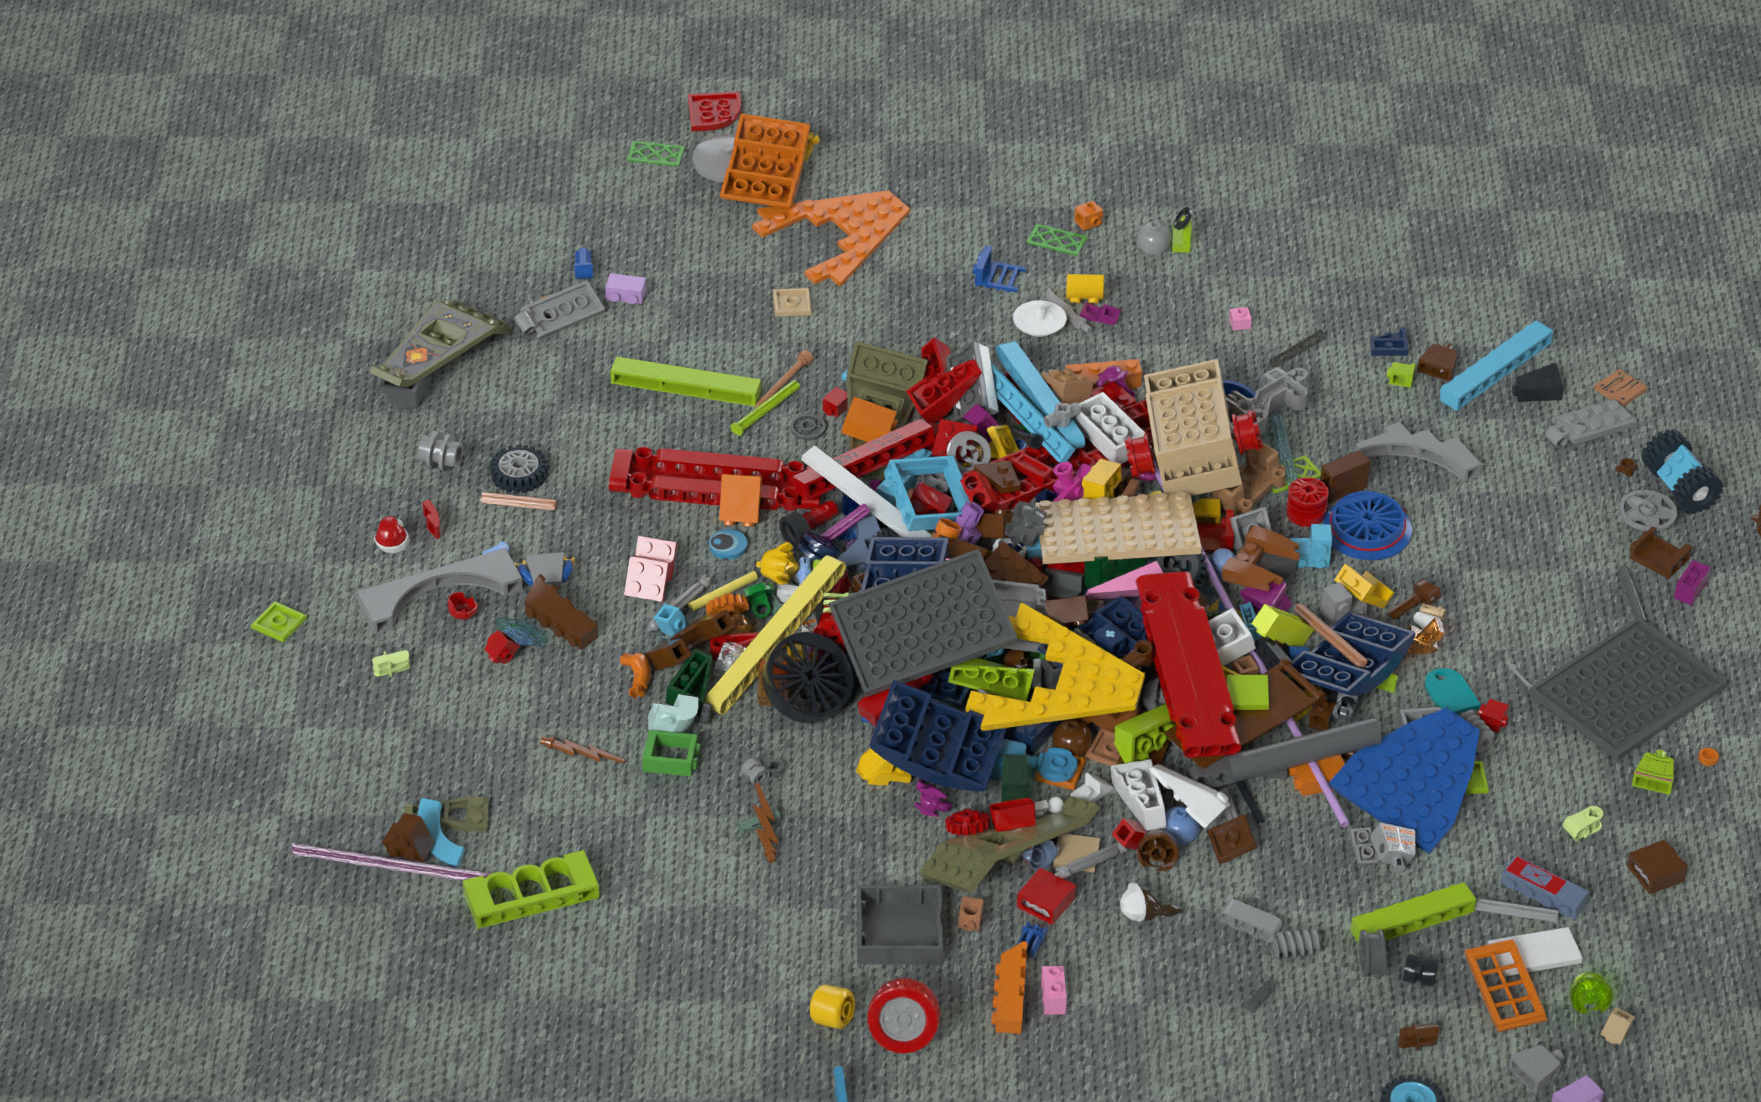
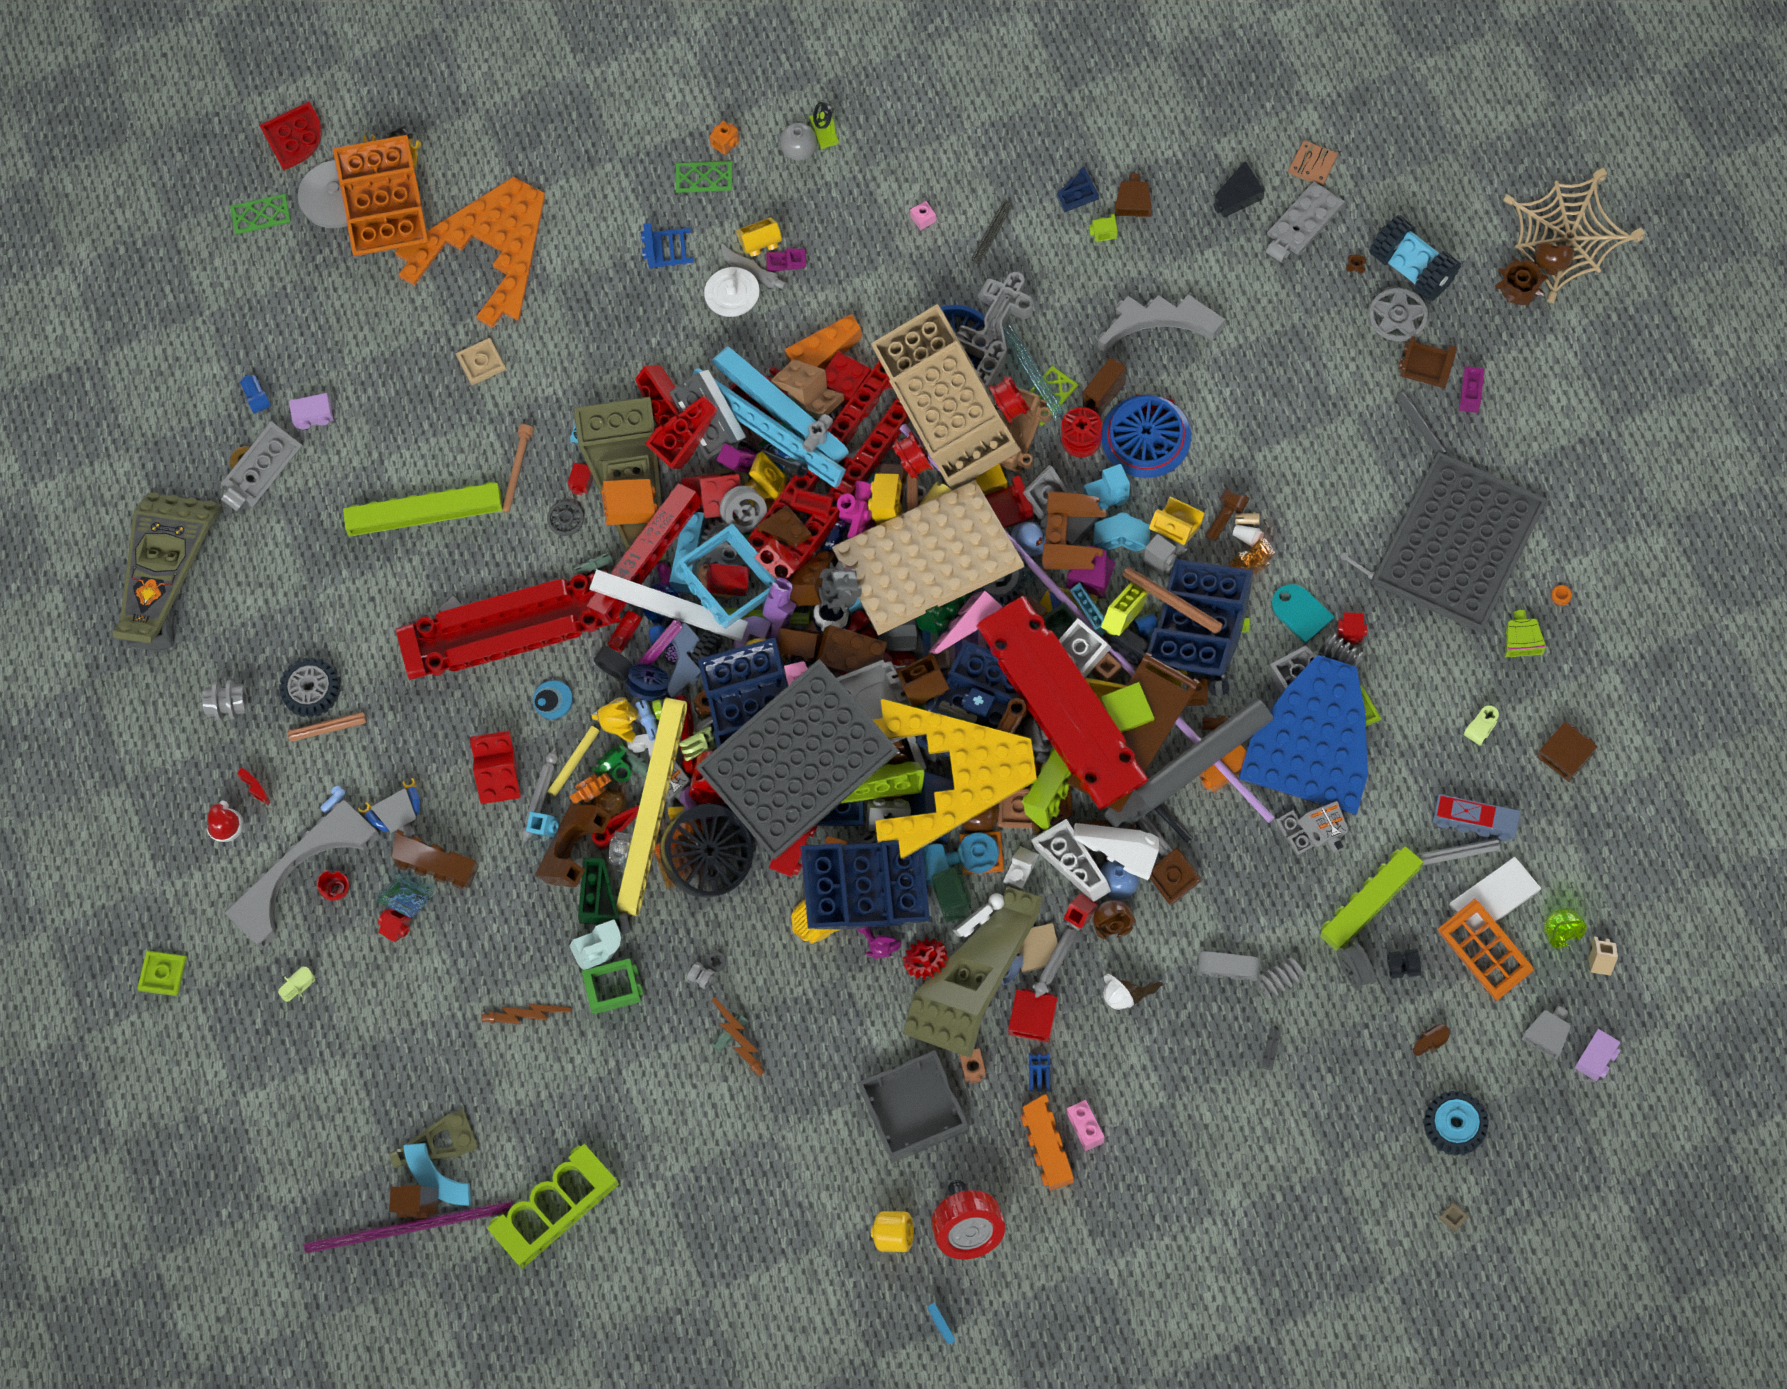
camera: 15 degrees left, 25 degrees up
(642, 672) = (540, 895): orange arm -> none
(740, 499) = (544, 647): orange brick -> none
(764, 408) = (514, 510): lime axle -> none
(947, 529) = (764, 622): orange wheel -> none
(1013, 814) = (966, 938): red piece -> none
(1106, 427) = (865, 424): white brick -> none
(1114, 373) = (841, 349): magenta piece -> none
(1307, 578) = (1121, 531): none -> medium azure brick
(1496, 365) = (1188, 182): medium azure brick -> none

